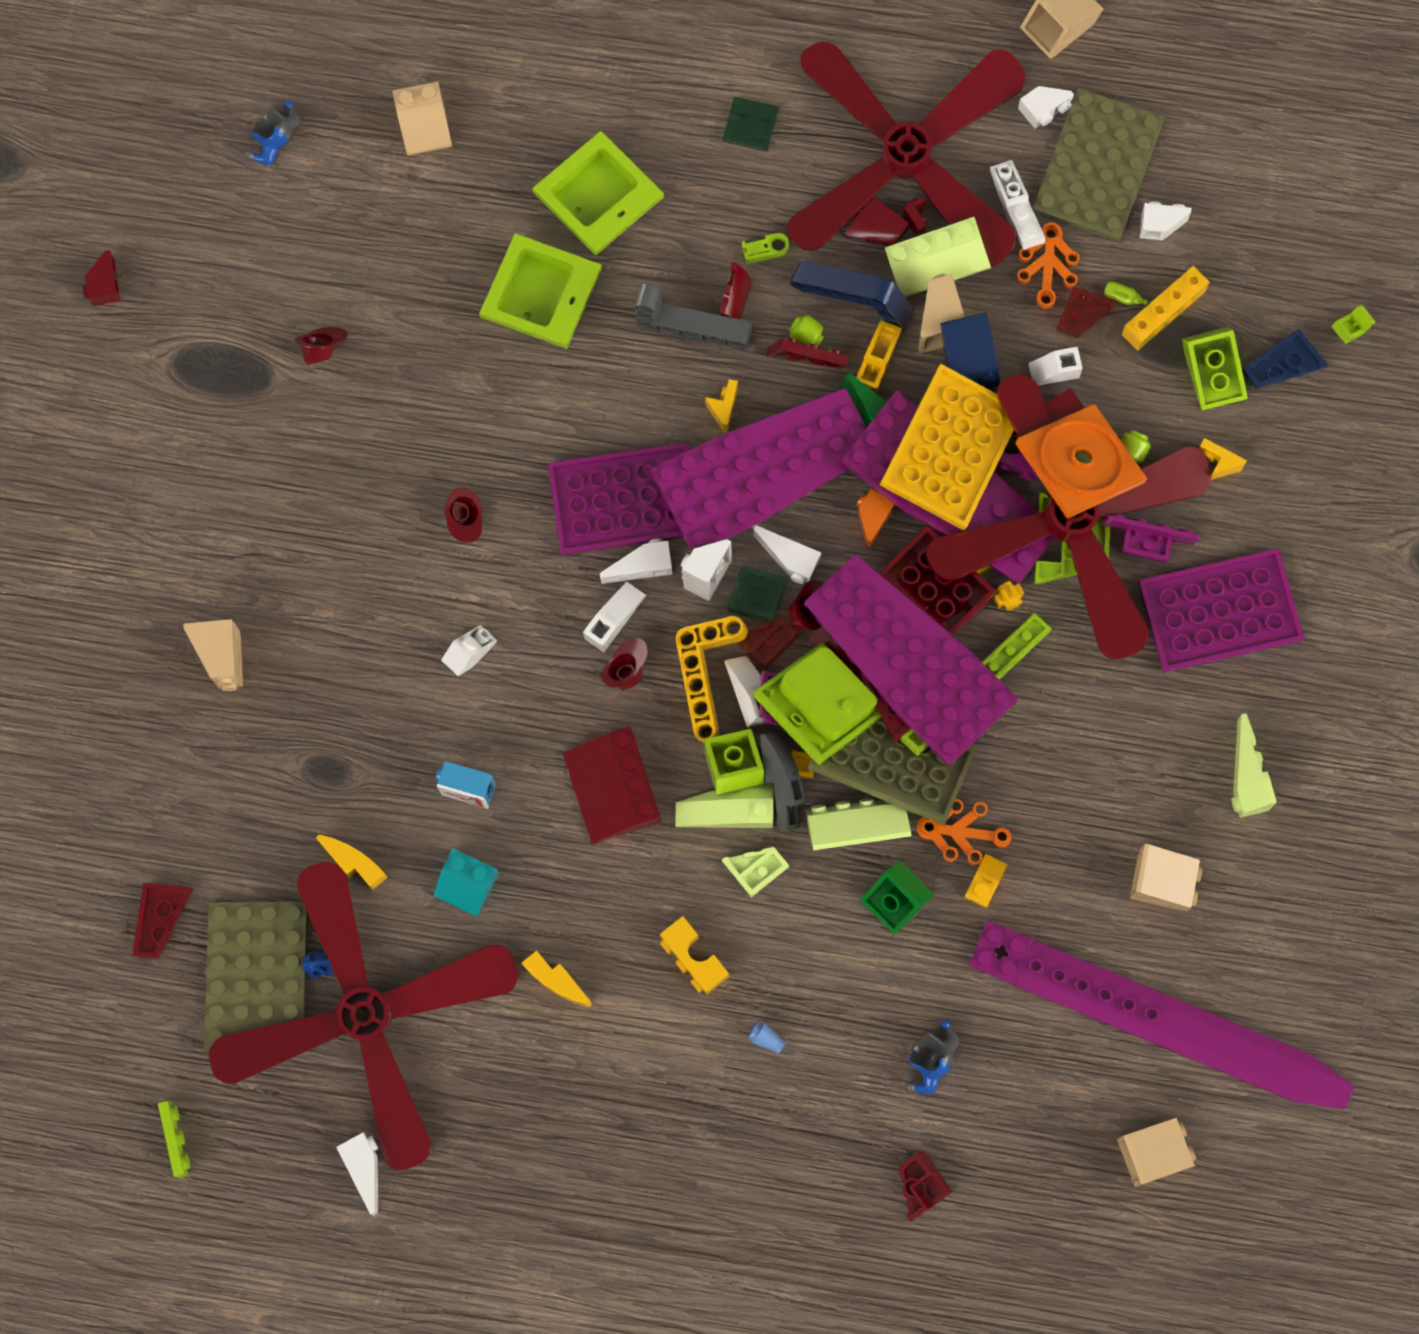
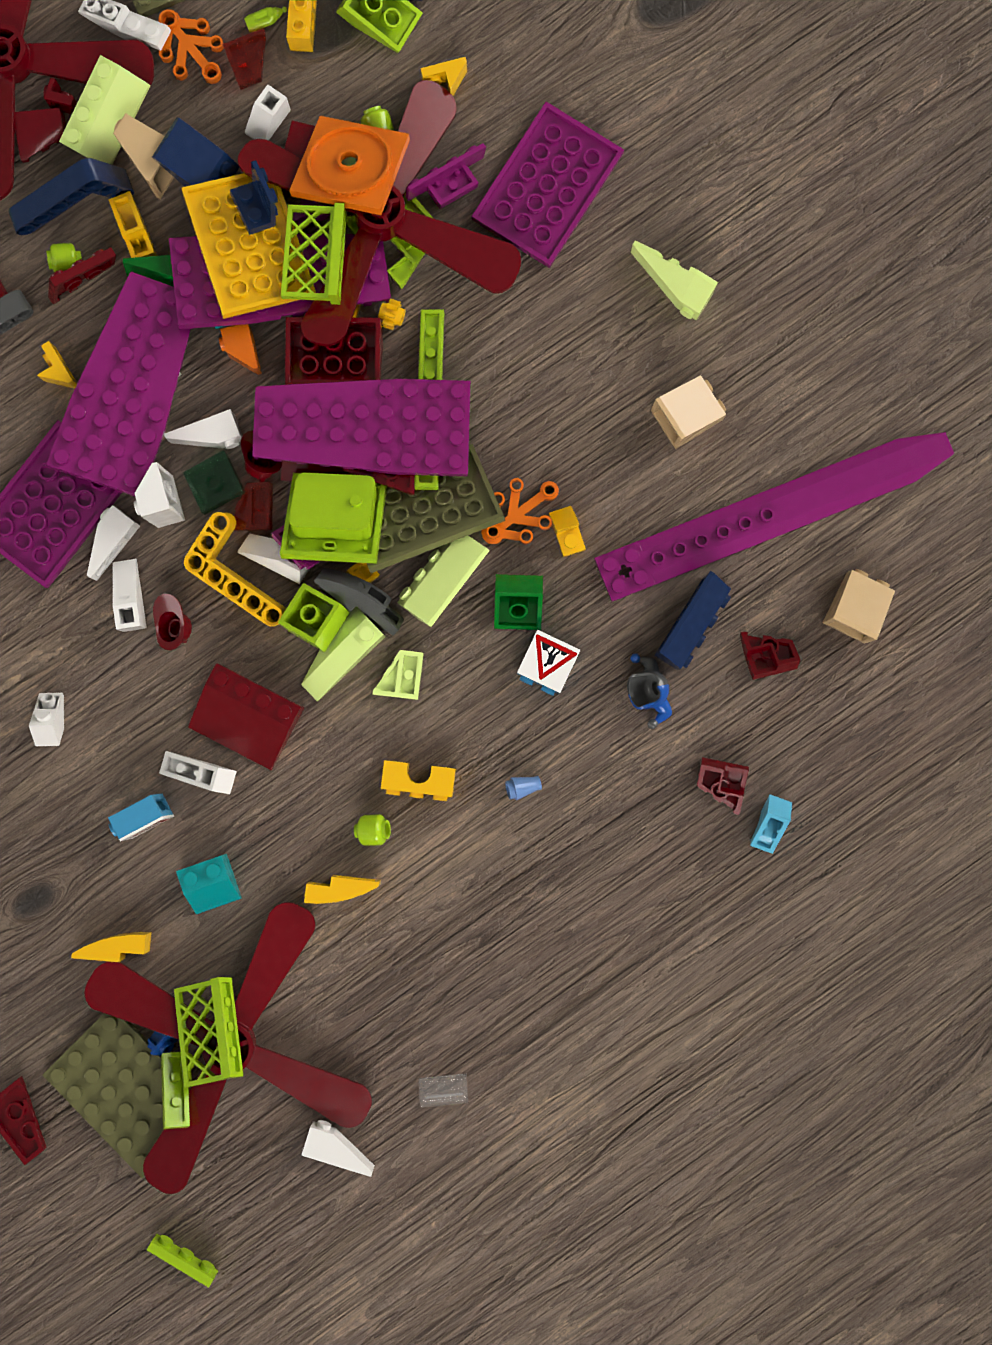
camera: 45 degrees left, 10 degrees up
(294, 1007) = (174, 1095): none -> lime plate
(379, 992) = (223, 1028): none -> lime fence
(483, 1207) = (443, 1090): none -> clear slope
(537, 793) = (198, 772): none -> white slope
(623, 960) = (372, 830): none -> lime head
(875, 963) = (547, 663): none -> white piece
(927, 1251) = (772, 824): none -> medium azure arch
(984, 424) = (256, 201): none -> dark blue bracket
(1003, 517) = (334, 251): none -> lime fence
(1015, 1039) = (693, 621): none -> dark blue slope
(1050, 1123) = (769, 655): none -> dark red slope

